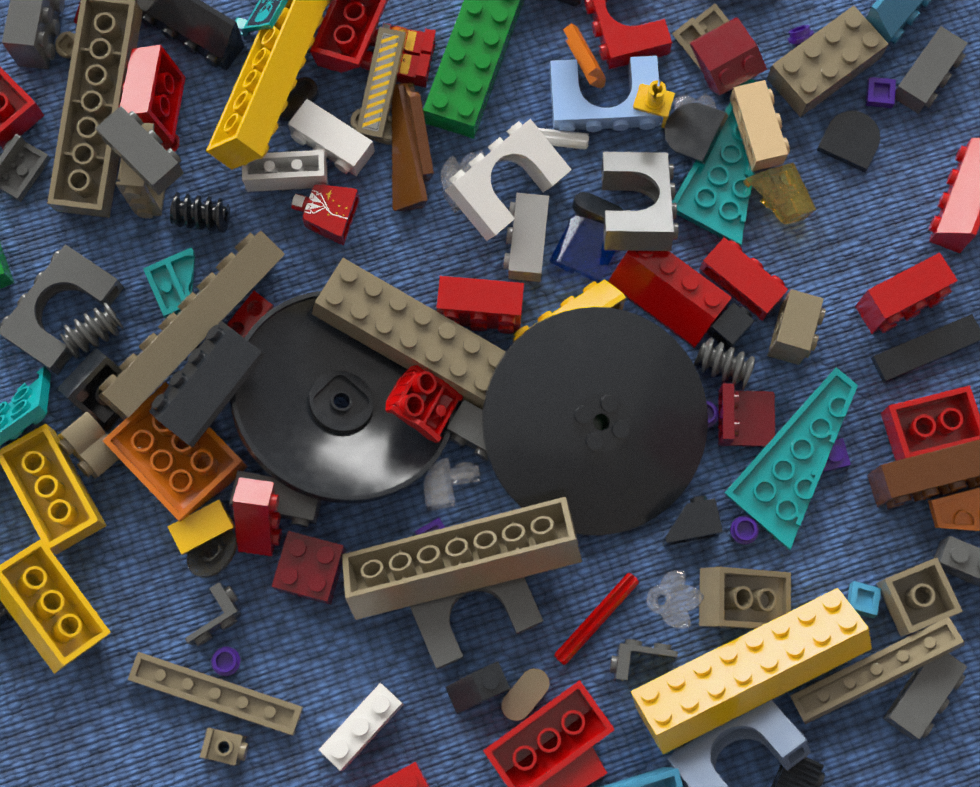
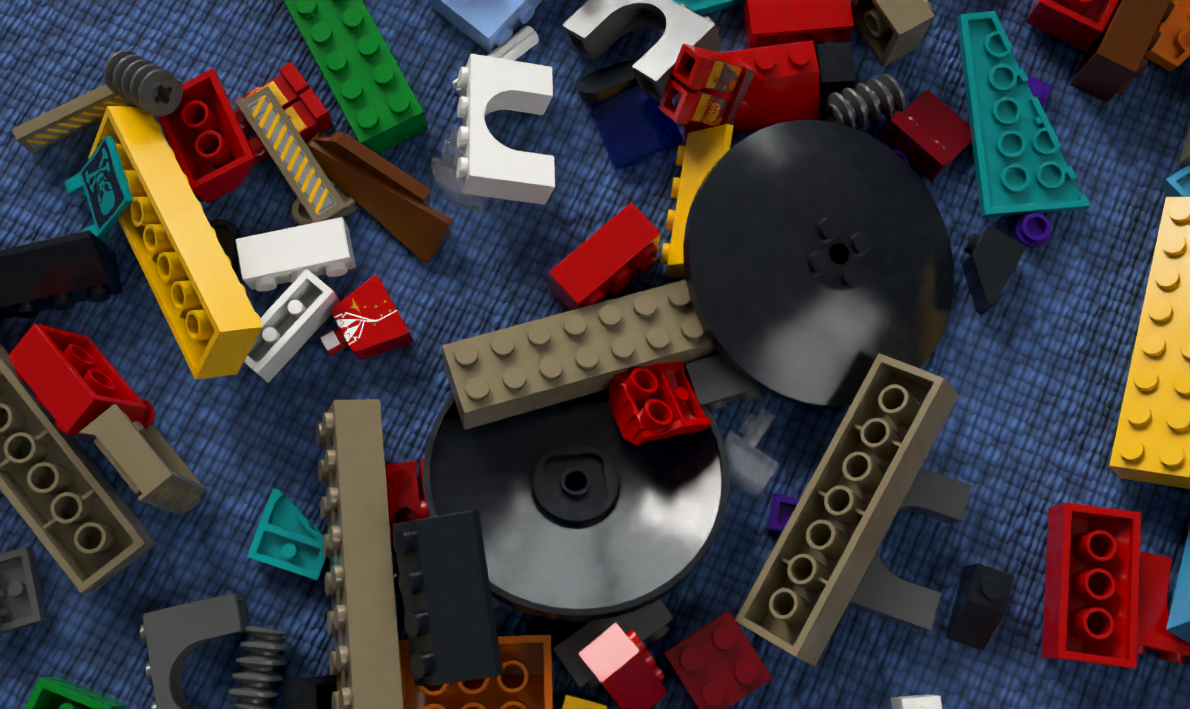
camera: 50 degrees left, 0 degrees up
(140, 149) = (130, 440): dark grey brick -> none
(199, 214) = (244, 448): black piece -> none
(525, 694) = (1019, 557): dark tan tile -> none
(527, 237) = (578, 165): light grey brick -> none
(596, 618) = (1002, 436): red axle -> none
(620, 664) = (1065, 446): dark grey bracket -> none
(636, 265) = (712, 90): none -> red hips
(679, 599) = (1053, 346): clear plate -> none
(743, 597) = (1099, 289): dark tan slope -> none

